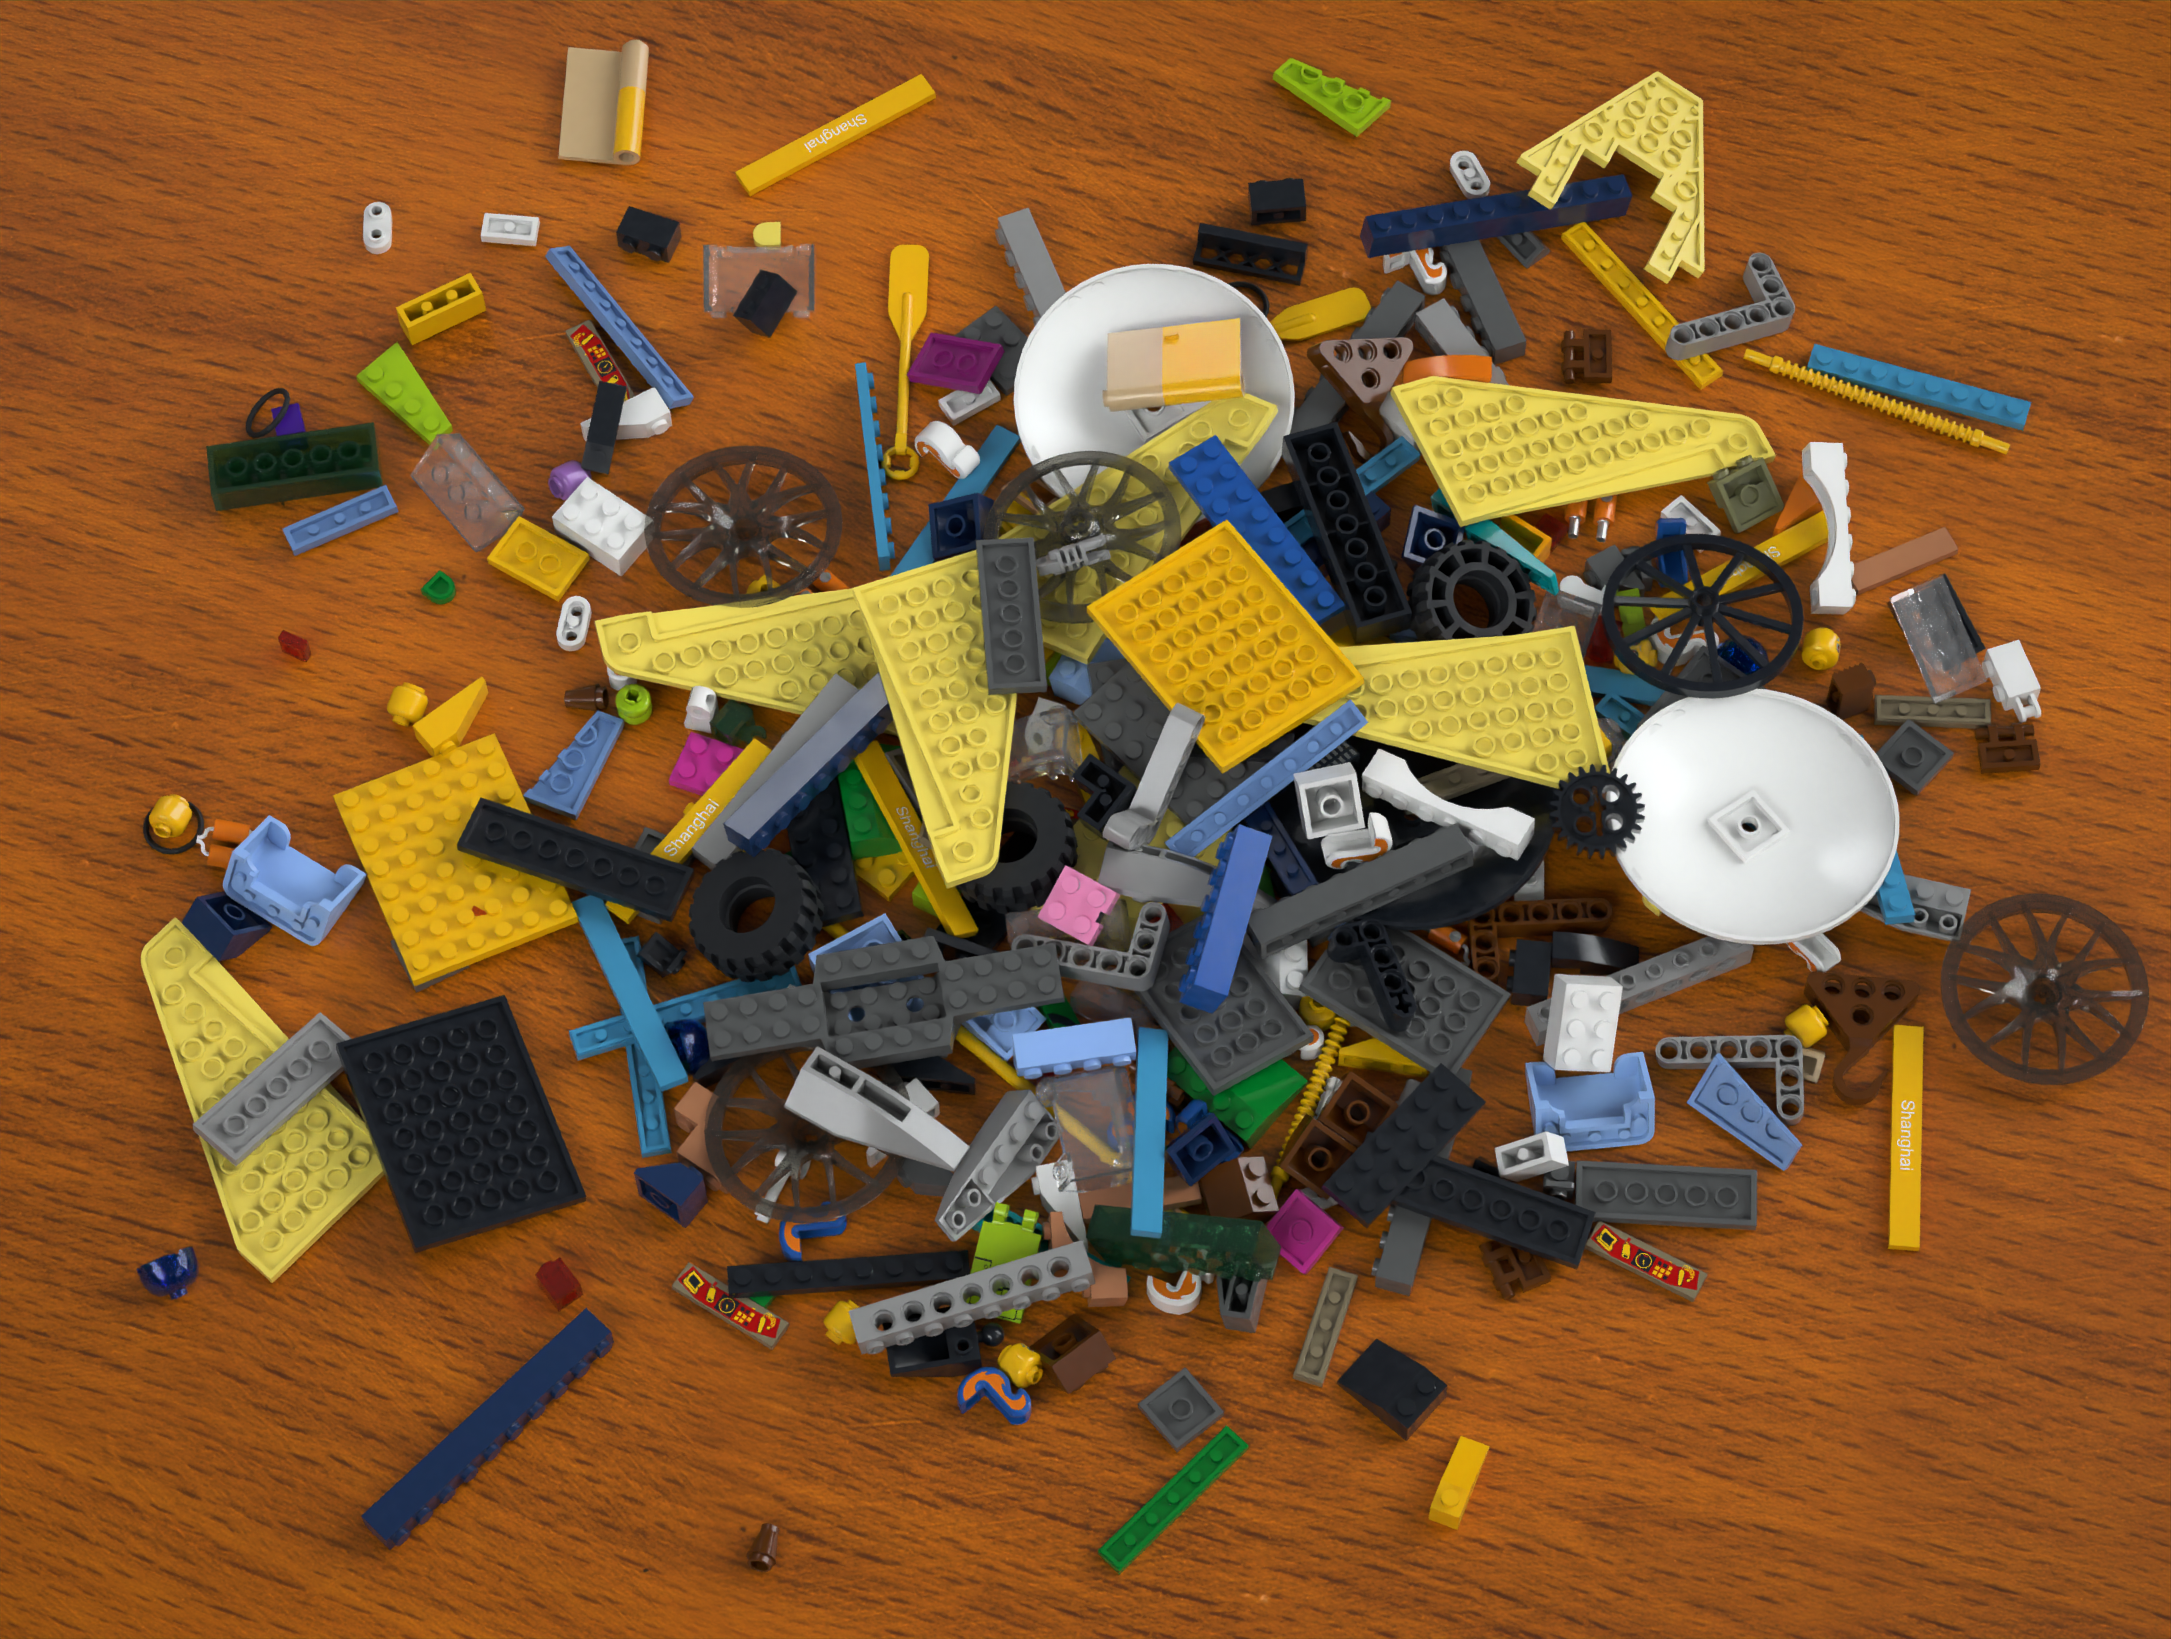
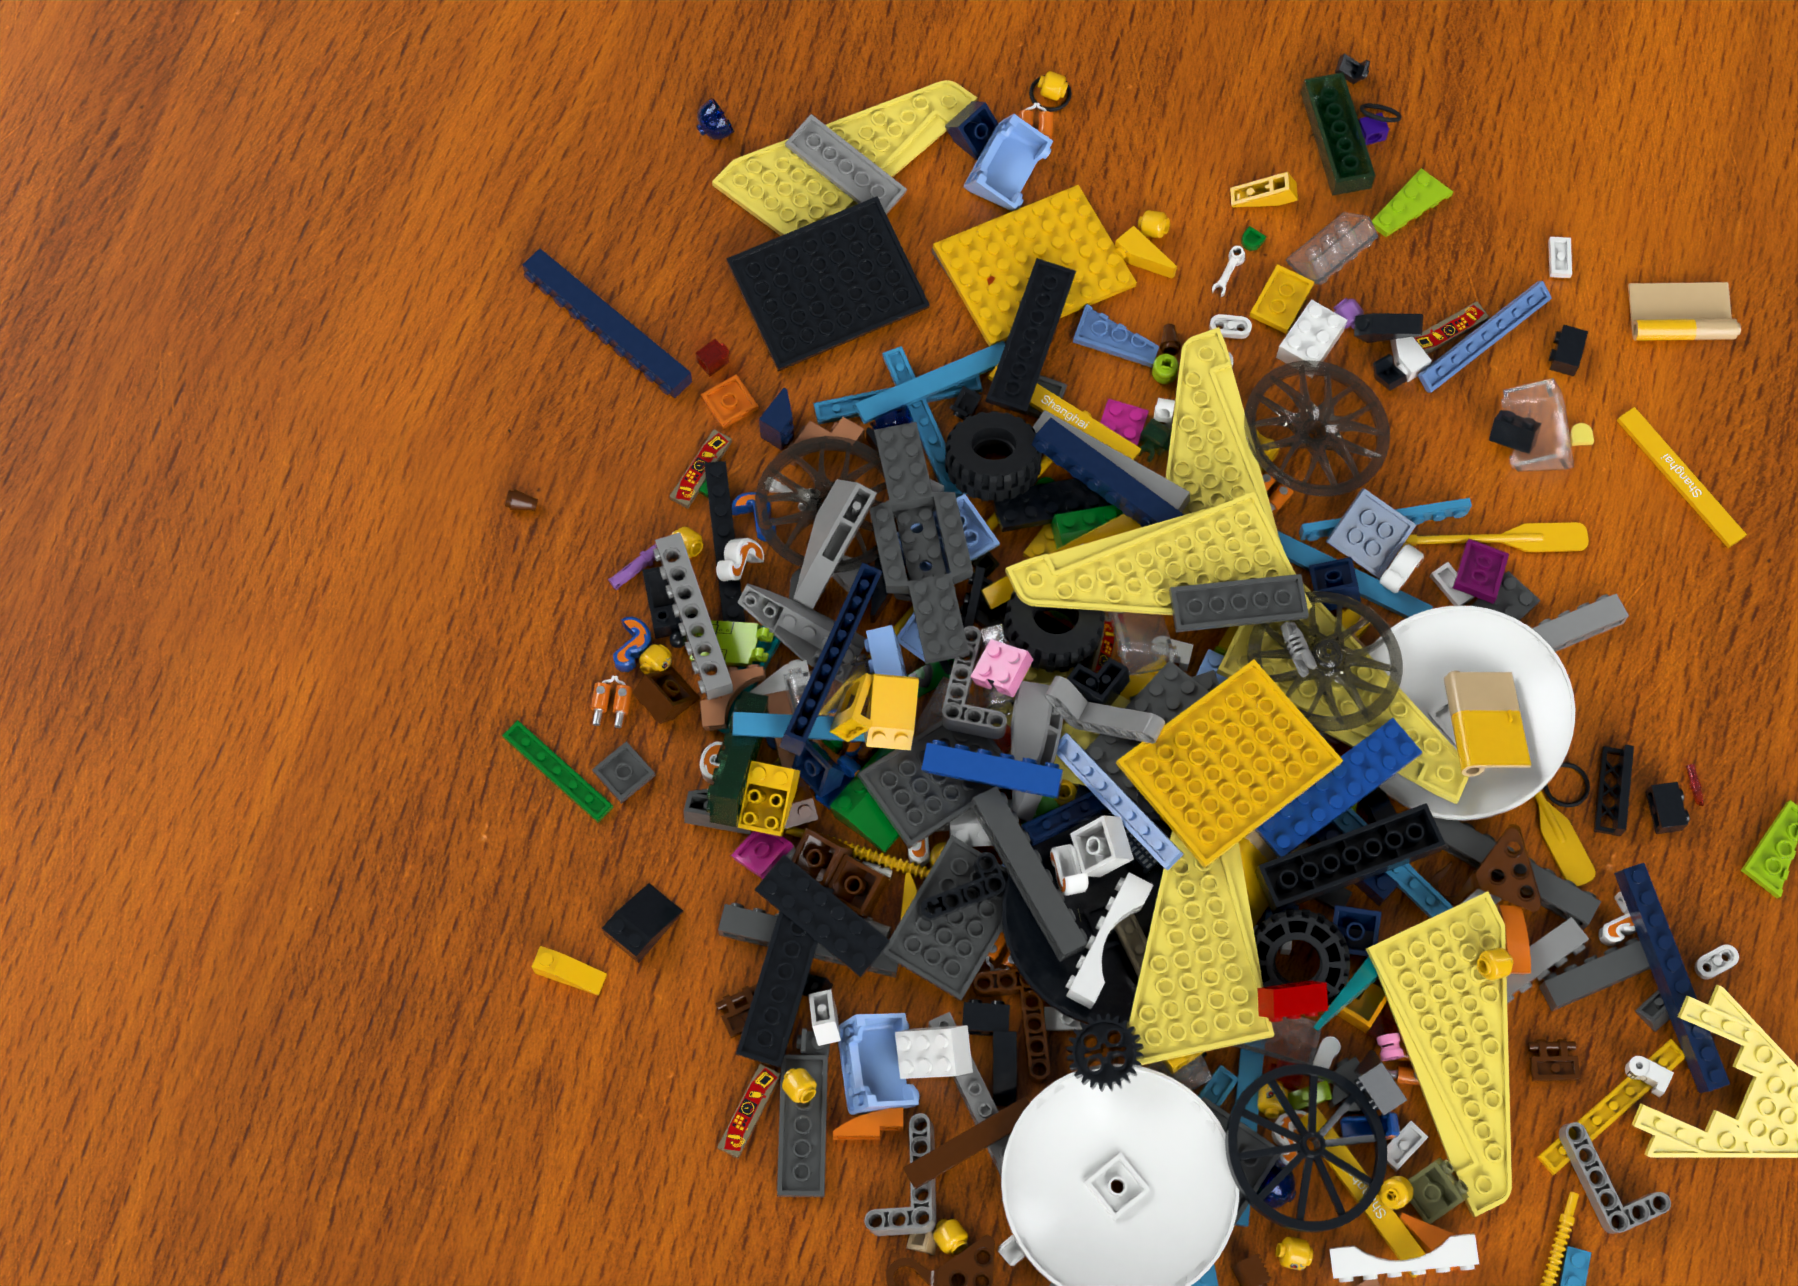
camera: 85 degrees right, 5 degrees up
(192, 441) = (1352, 69): none -> black bracket
(294, 646) = (1194, 149): clear red tile -> none
(340, 520) = (1300, 169): medium blue plate -> none
(373, 566) = (1265, 192): none -> yellow slope
(377, 225) = (1551, 171): white plate -> none
(441, 308) = (1481, 214): yellow brick -> none
(468, 613) = (1234, 260): none -> white brick
(627, 1266) = (729, 401): none -> orange tile
(664, 441) = (1388, 373): none -> black bracket
(866, 1379) = (645, 559): none -> medium lavender pin
(882, 1249) = (735, 557): none -> white animal
(898, 478) = (1371, 533): none -> sand blue plate
(1056, 1111) = (830, 659): none -> dark blue brick
(1080, 1413) = (601, 697): none -> orange piece
(1143, 1035) = (892, 711): none -> yellow slope
(1152, 1080) = (849, 722): none -> yellow window
(1239, 1196) = (768, 798): none -> yellow slope
(1245, 171) = (1695, 784): none -> clear red piece
(1325, 1327) = (692, 873): dark tan tile -> none
(1484, 388) = (1495, 963): none -> yellow head
(1532, 600) = (1292, 1000): none -> red brick
(1575, 520) = (1390, 1047): none -> bright pink wheel
(1607, 255) = (1649, 1072): none -> white leg
(1620, 1189) = (799, 1085): none -> yellow head
(1624, 530) = (1379, 1084): none -> slope
(1668, 1114) = (870, 1124): none -> orange slope
(1698, 987) = (965, 1145): none -> reddish brown tile
(1741, 1112) = (870, 1185): medium blue wing -> none
(1751, 530) = (1396, 1192): none -> yellow head

